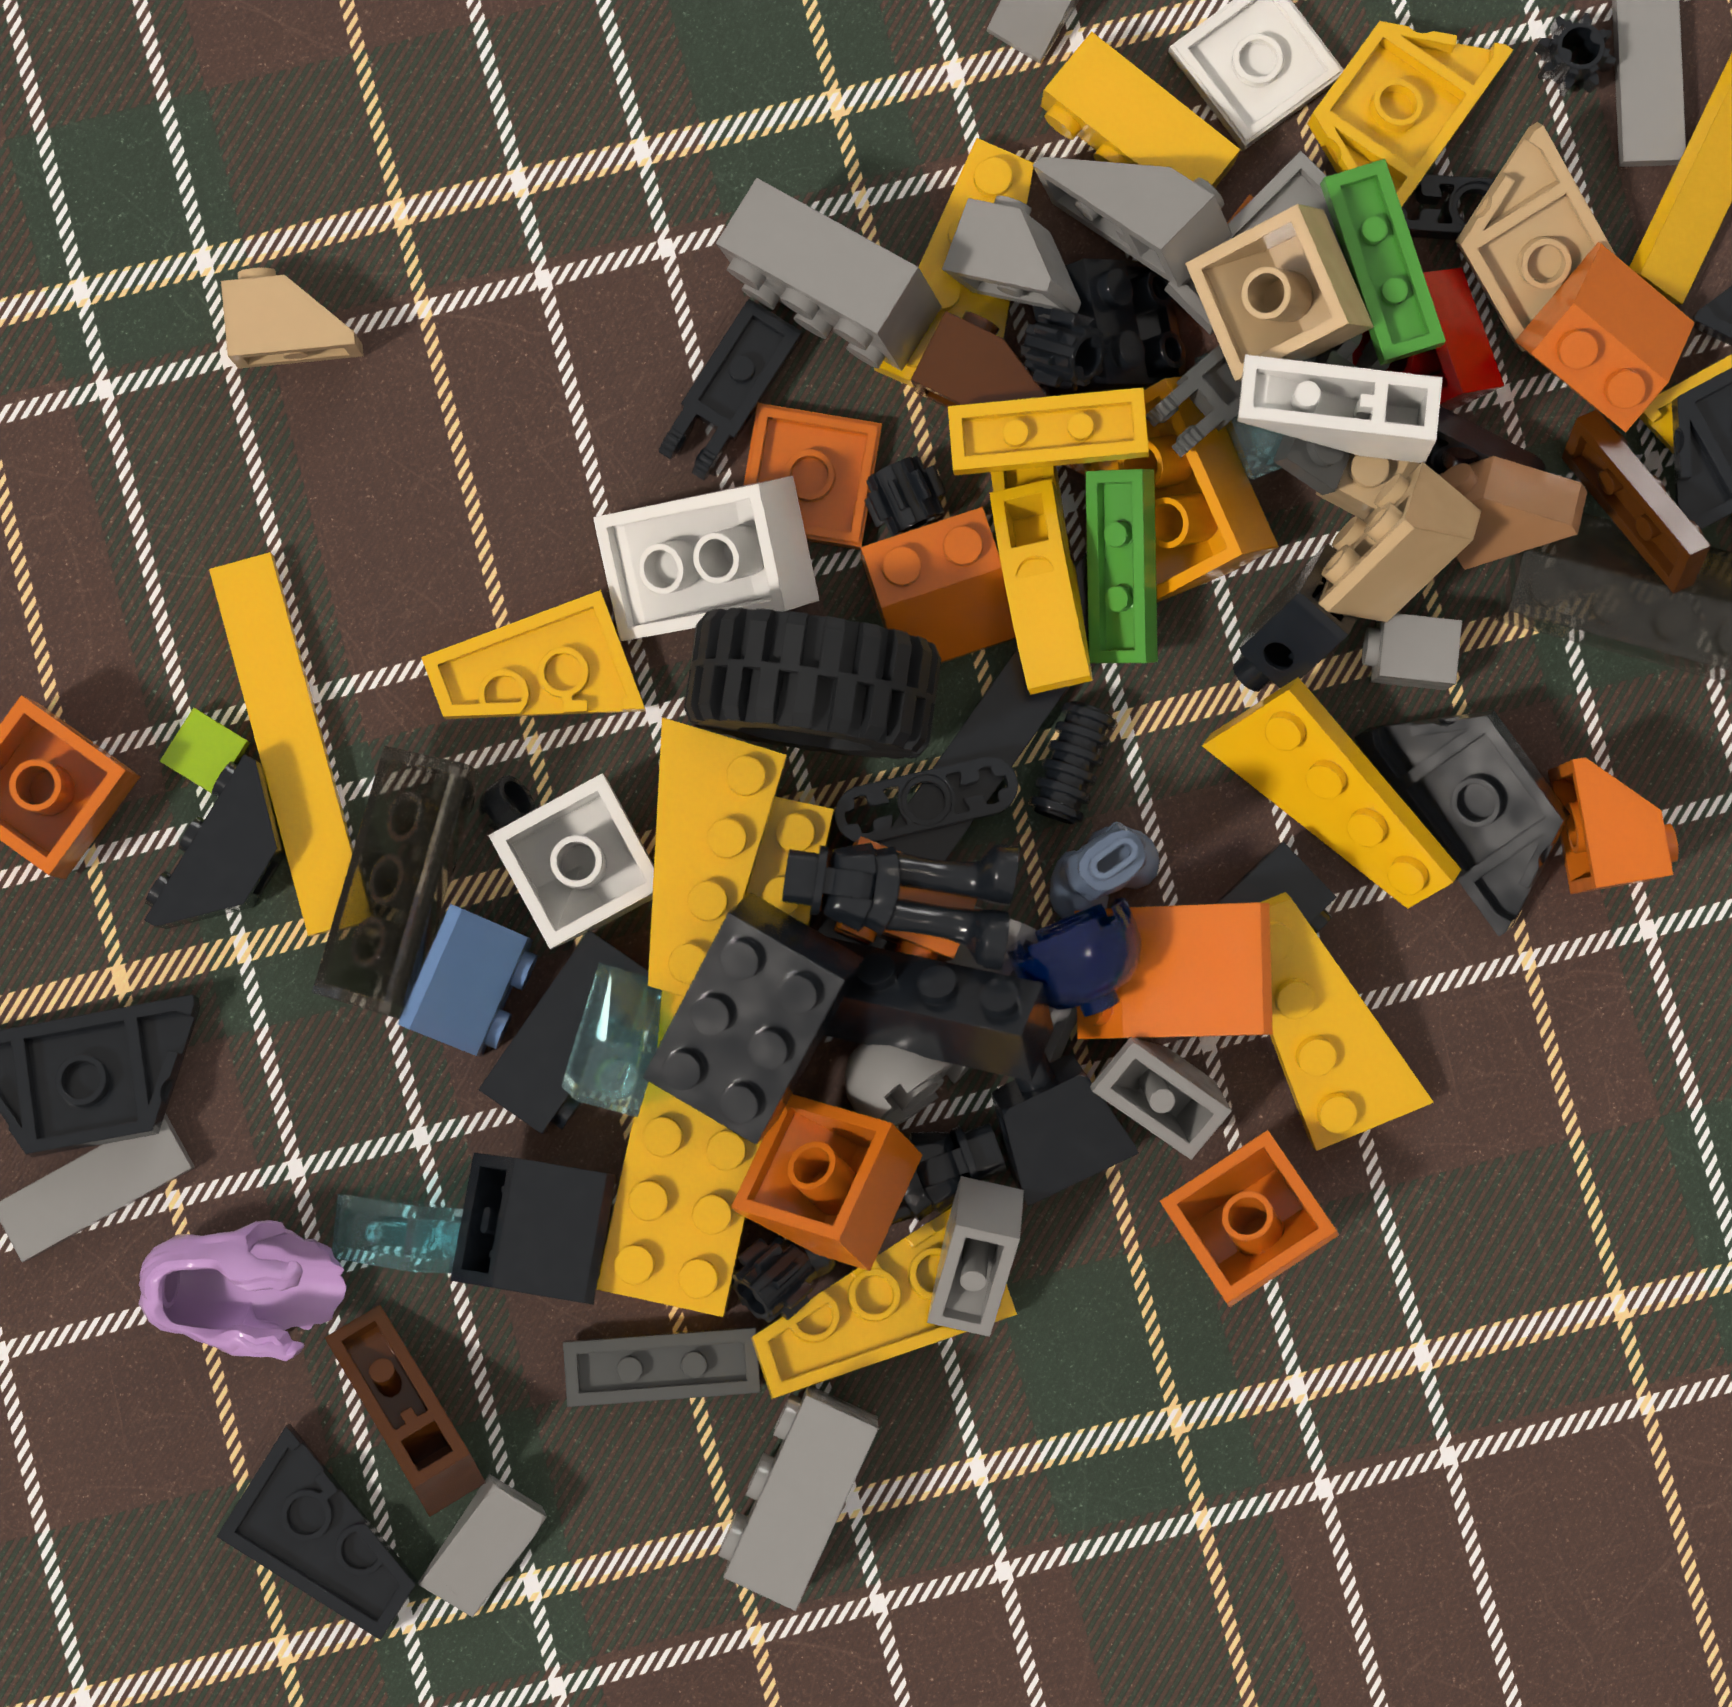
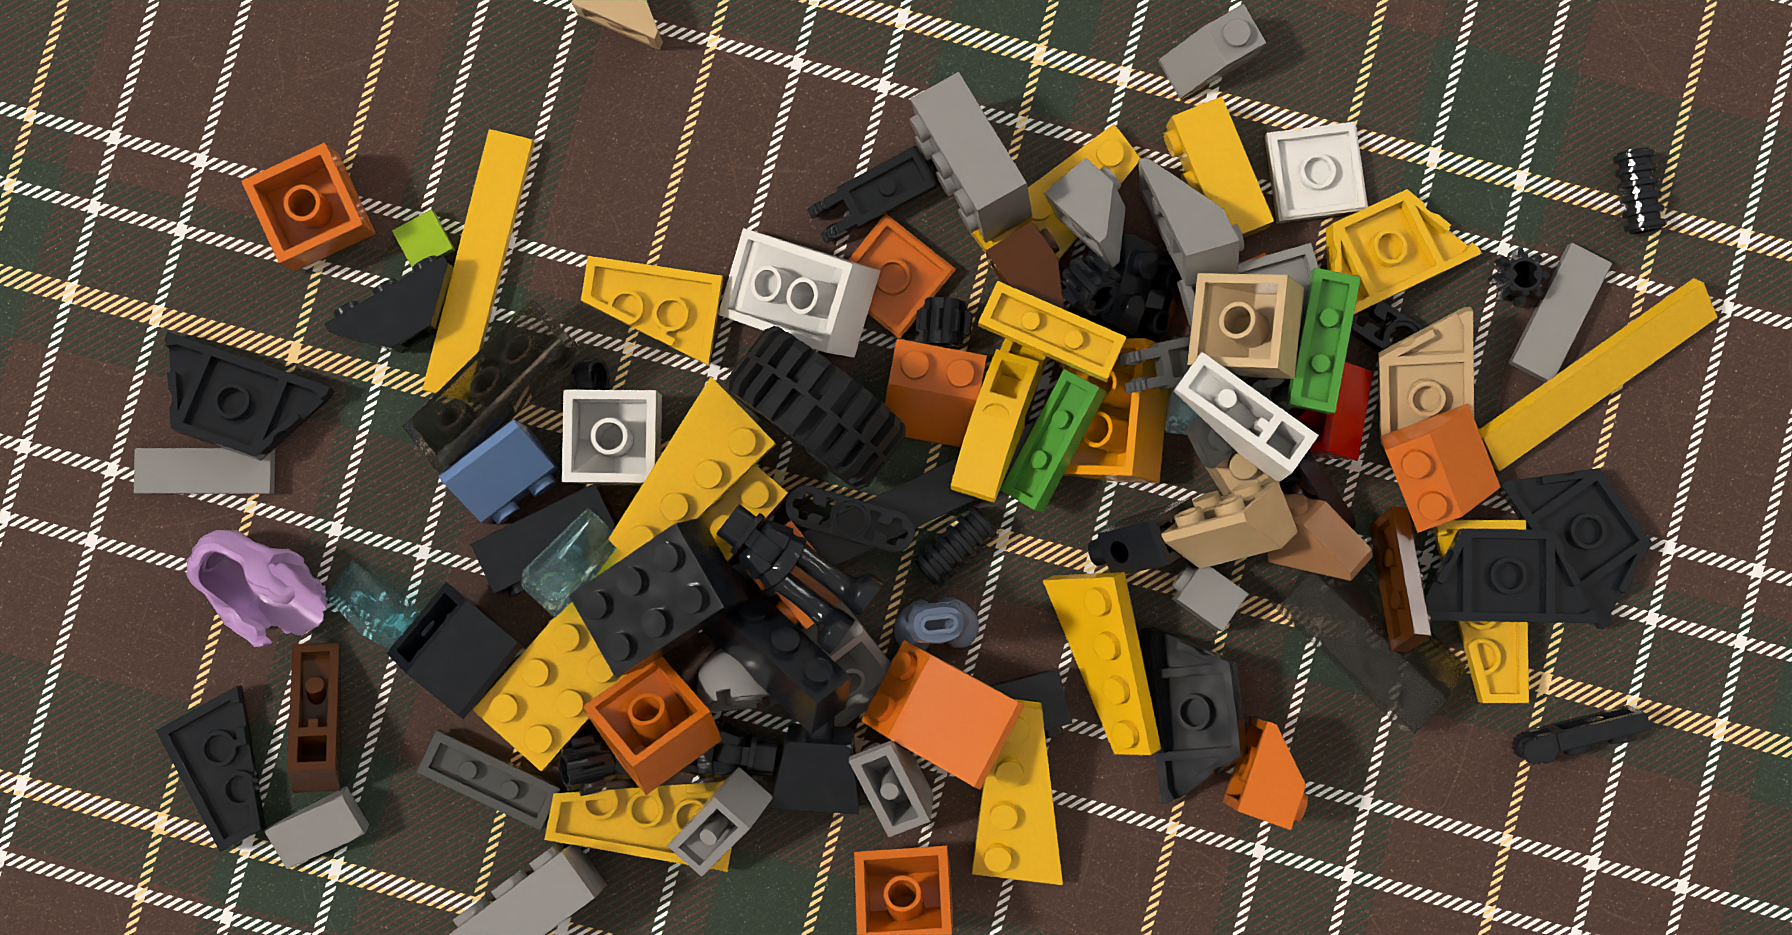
camera: 30 degrees right, 0 degrees up
(1082, 957) = (887, 673): clear blue cylinder -> none

